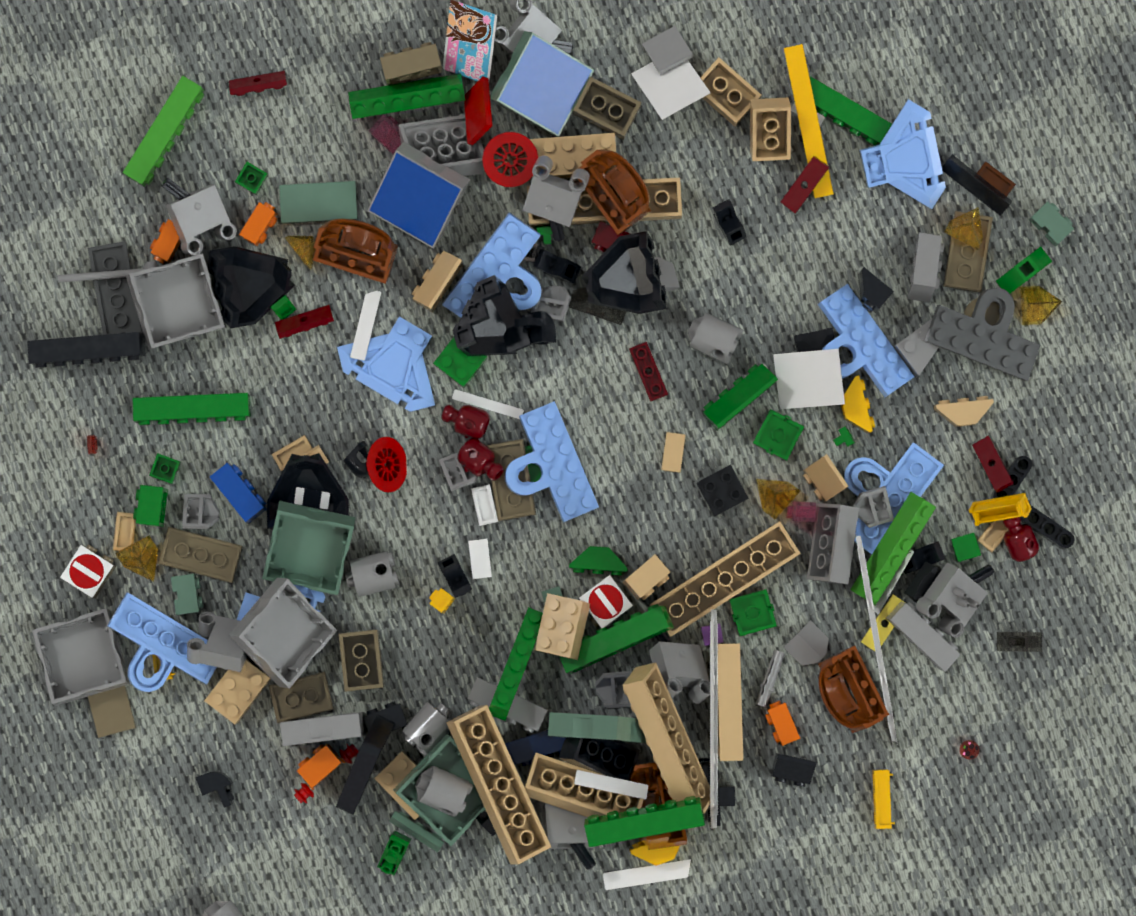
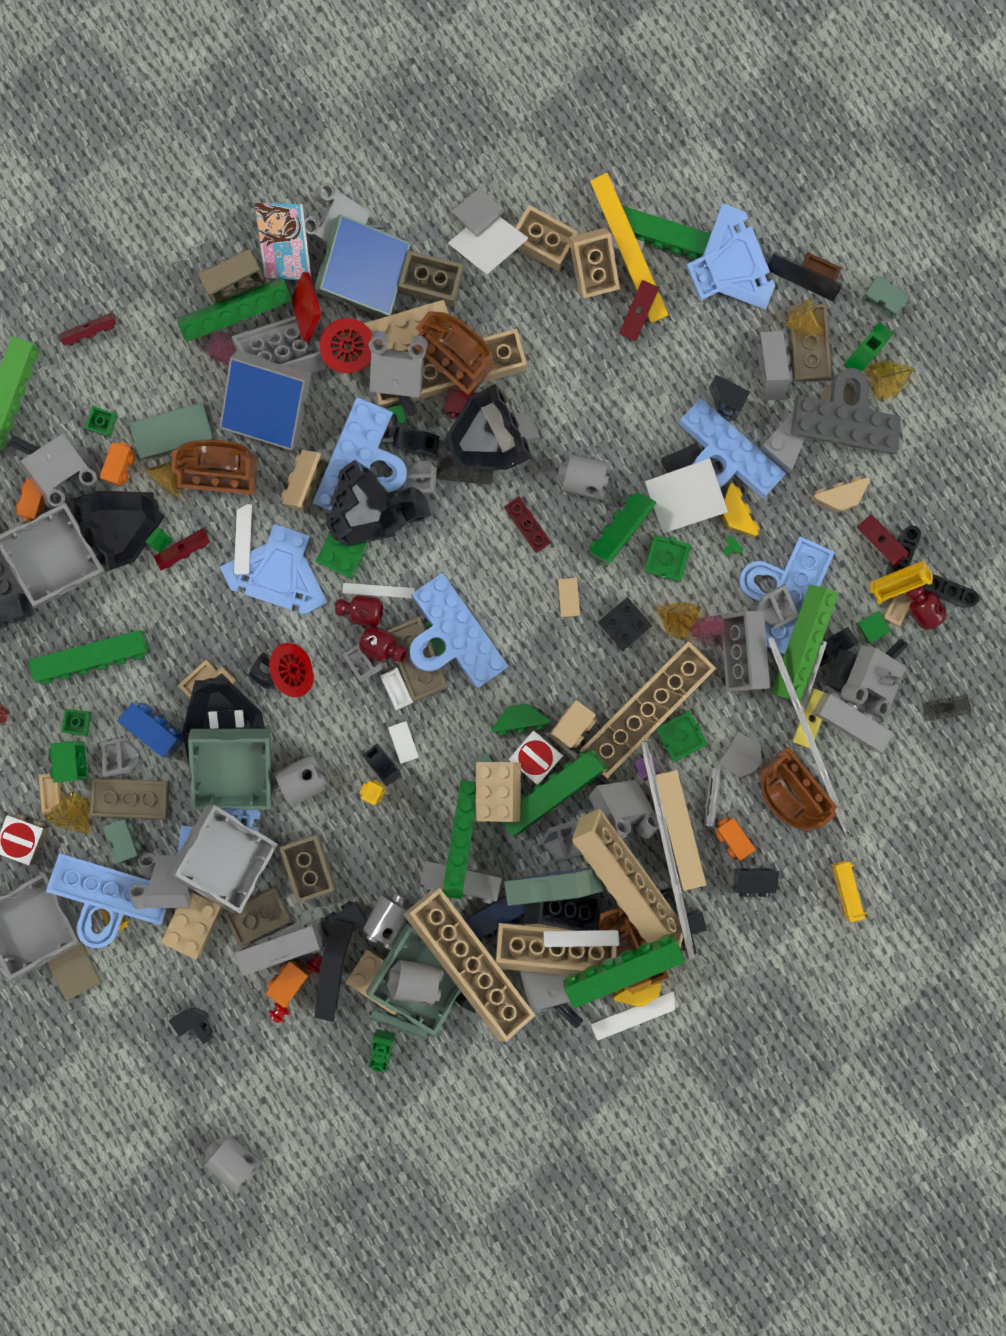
camera: 10 degrees left, 0 degrees up
(729, 222) = (573, 363): black brick -> none
(825, 478) = (724, 589): tan slope -> none
(969, 749) = (921, 823): clear red tile -> none

